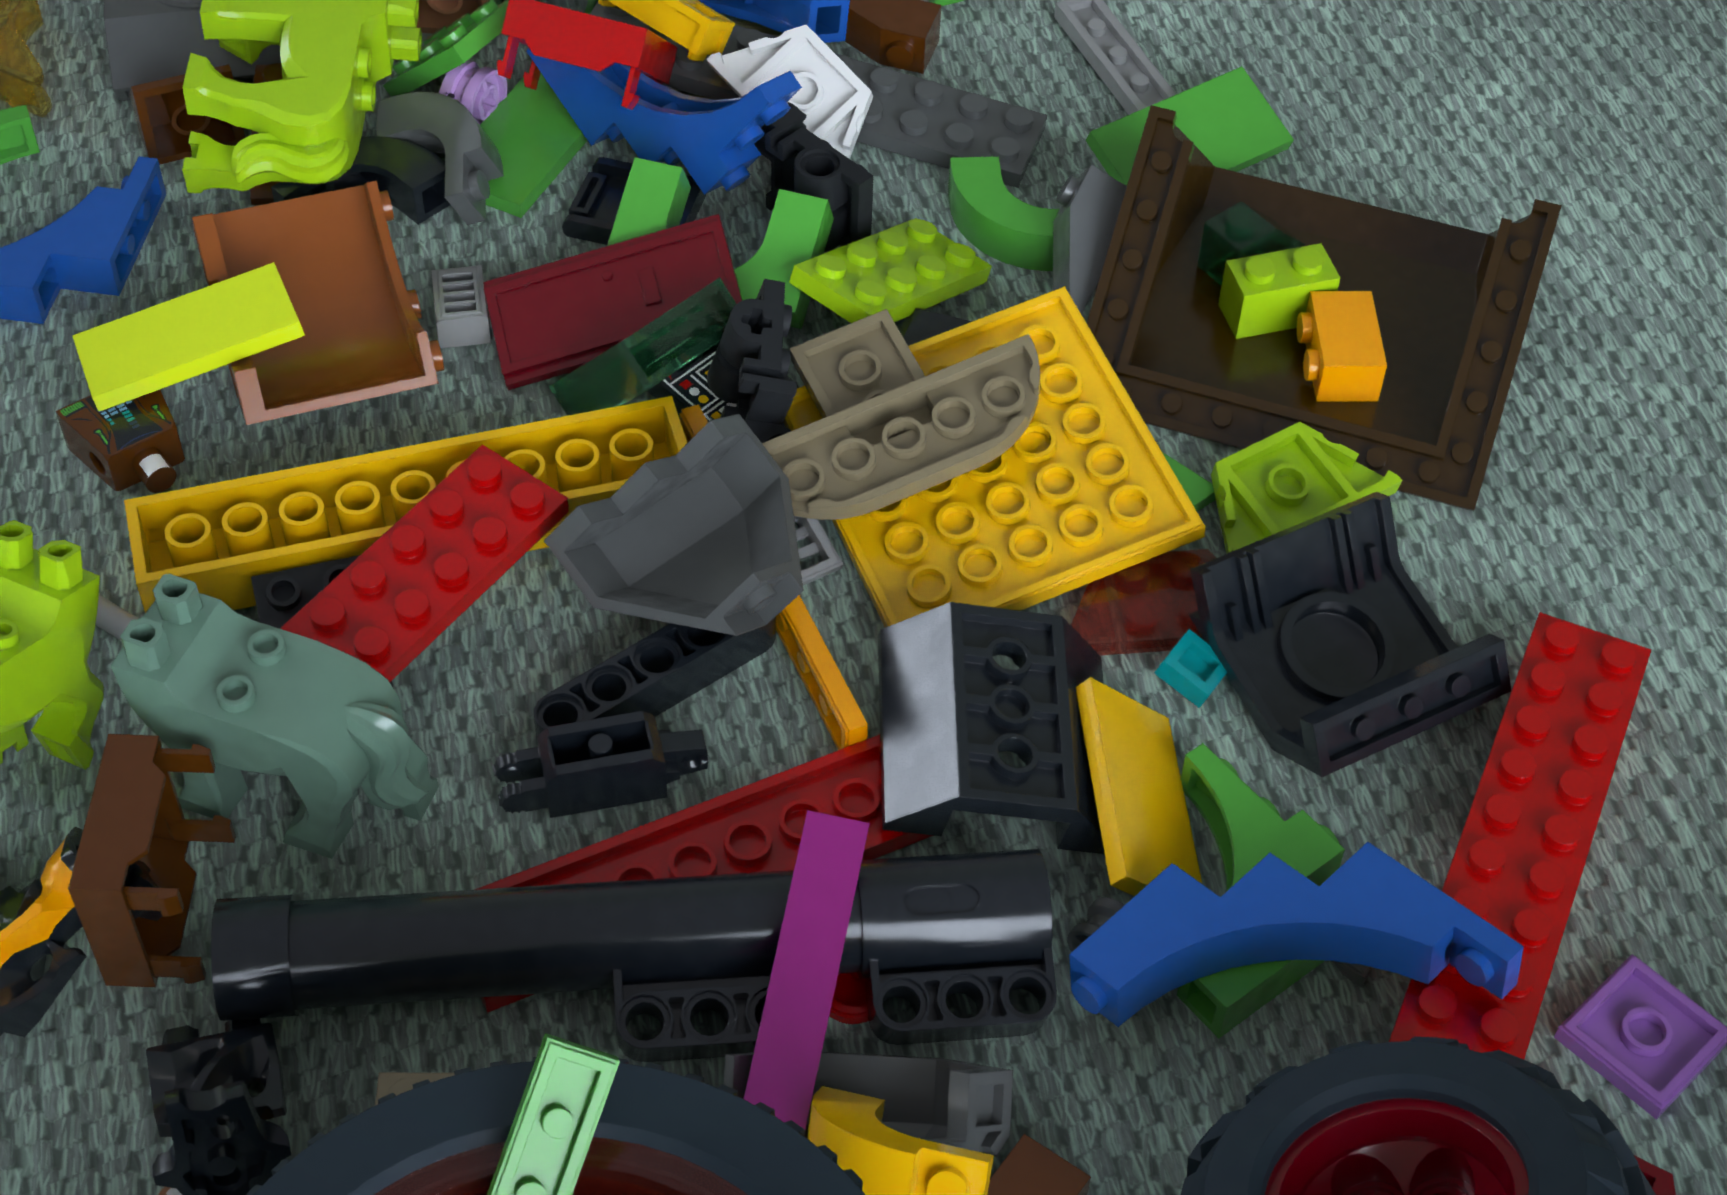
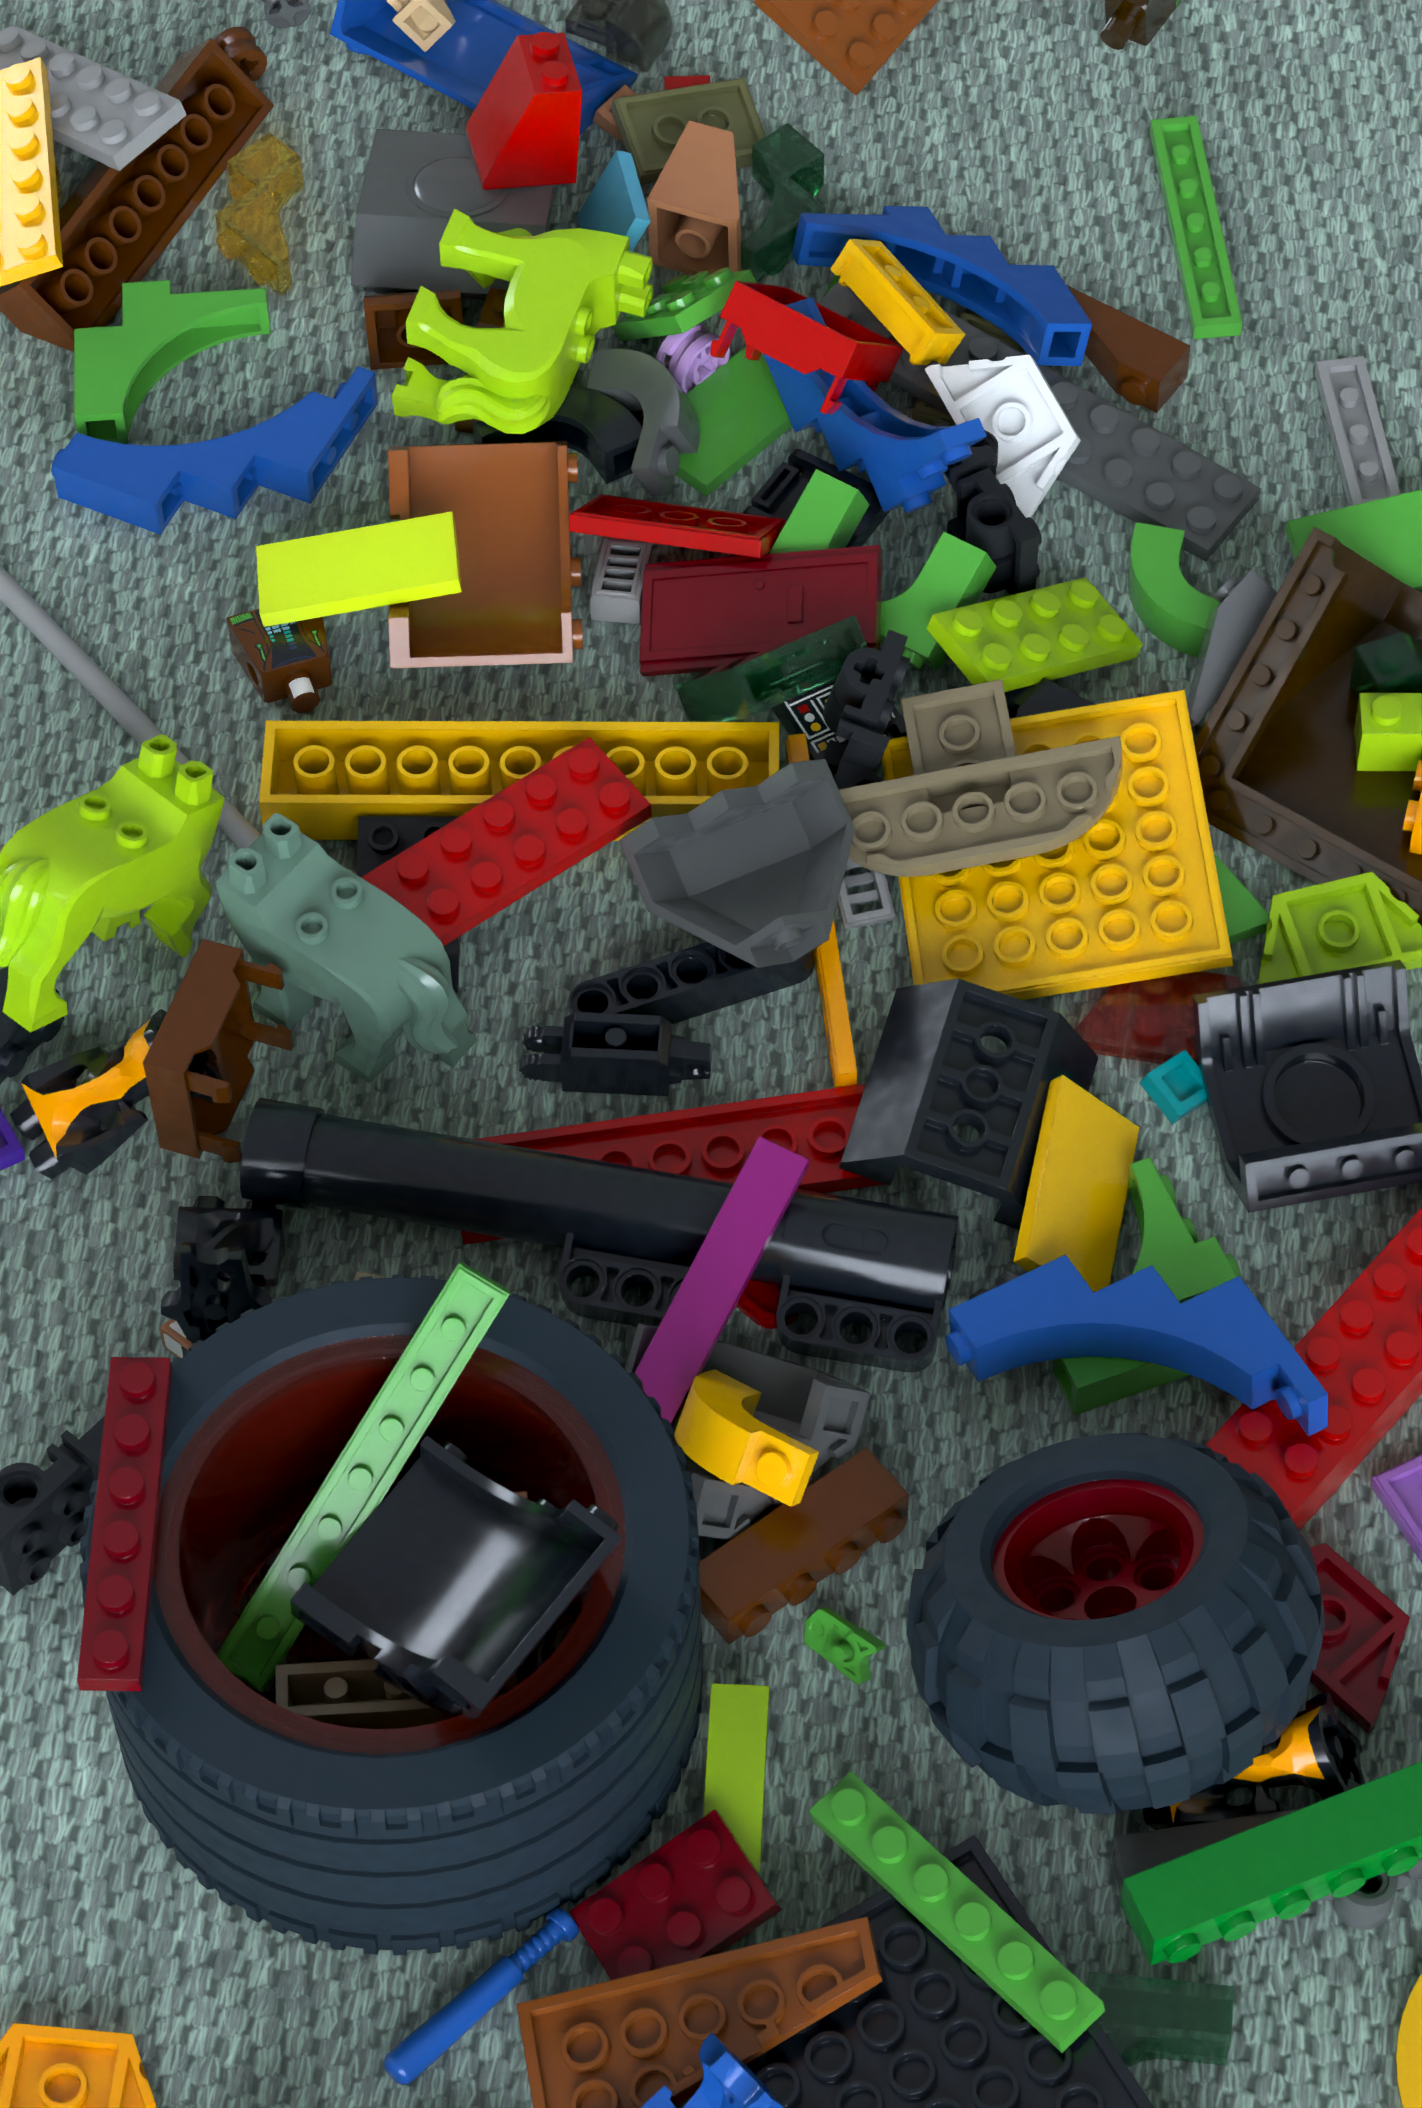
camera: 20 degrees right, 5 degrees up
(505, 240) = (677, 525): none -> red tile

